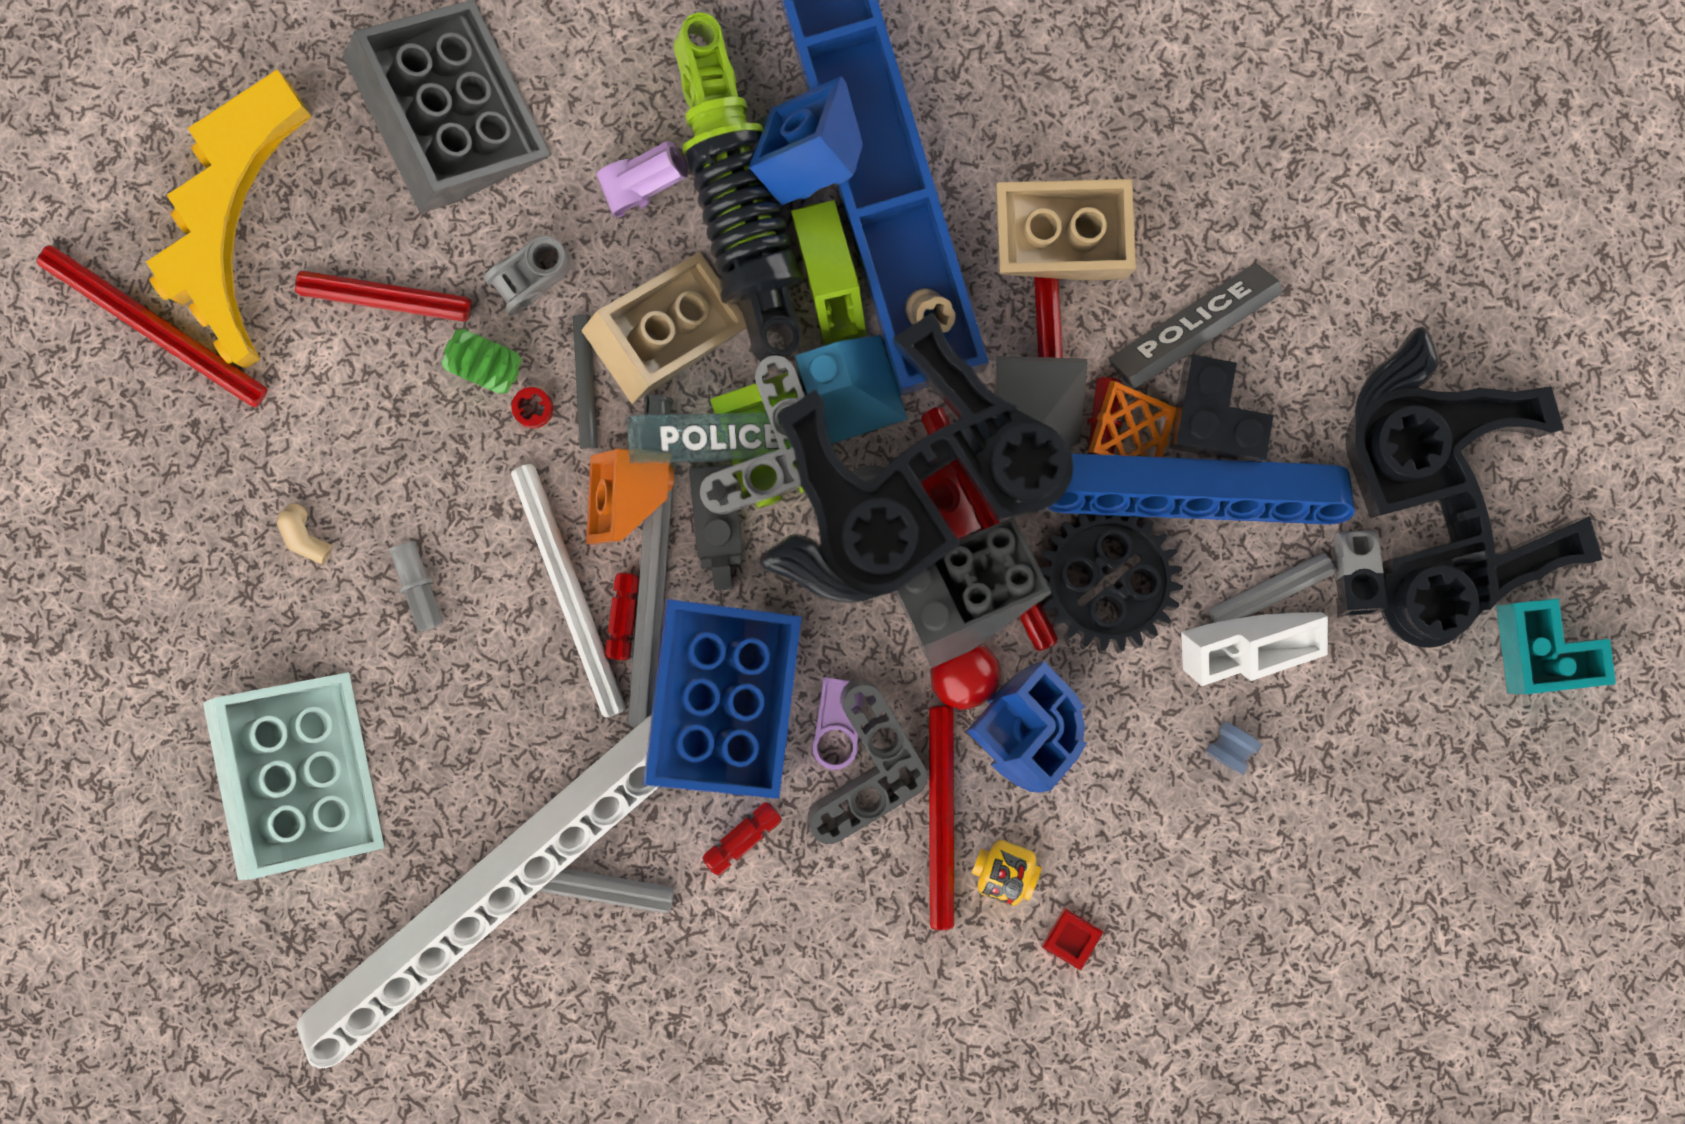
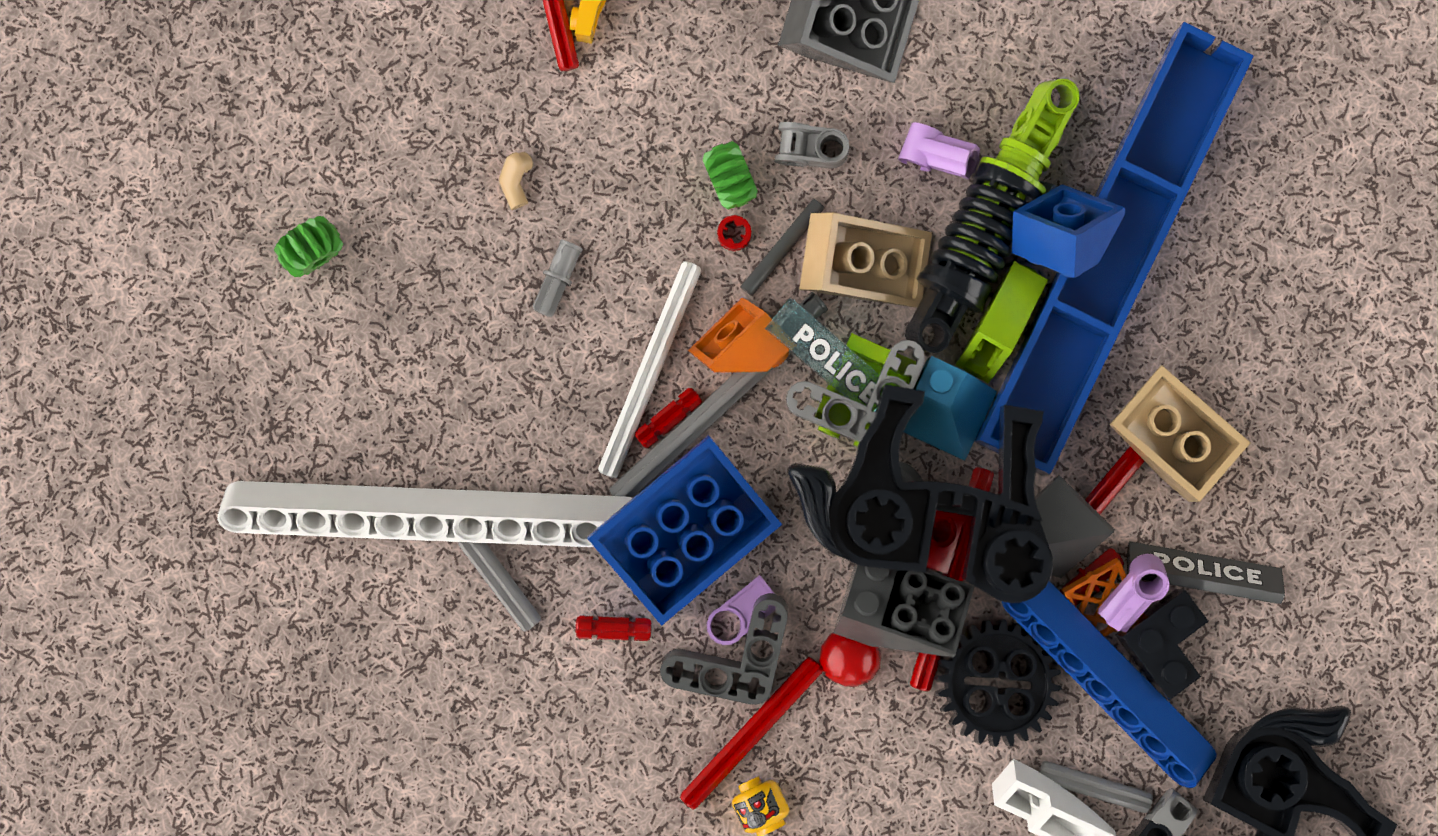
camera: 45 degrees right, 0 degrees up
(174, 758) = (308, 246): none -> bright green gear
(293, 775) = (370, 326): light aqua slope -> none
(383, 296) = (706, 75): red axle -> none
(716, 534) = (775, 421): dark grey hinge -> none
(929, 299) = (1049, 398): tan bush -> none
(1032, 728) = (861, 731): blue brick -> none
(1153, 399) = (1133, 595): none -> lavender piece

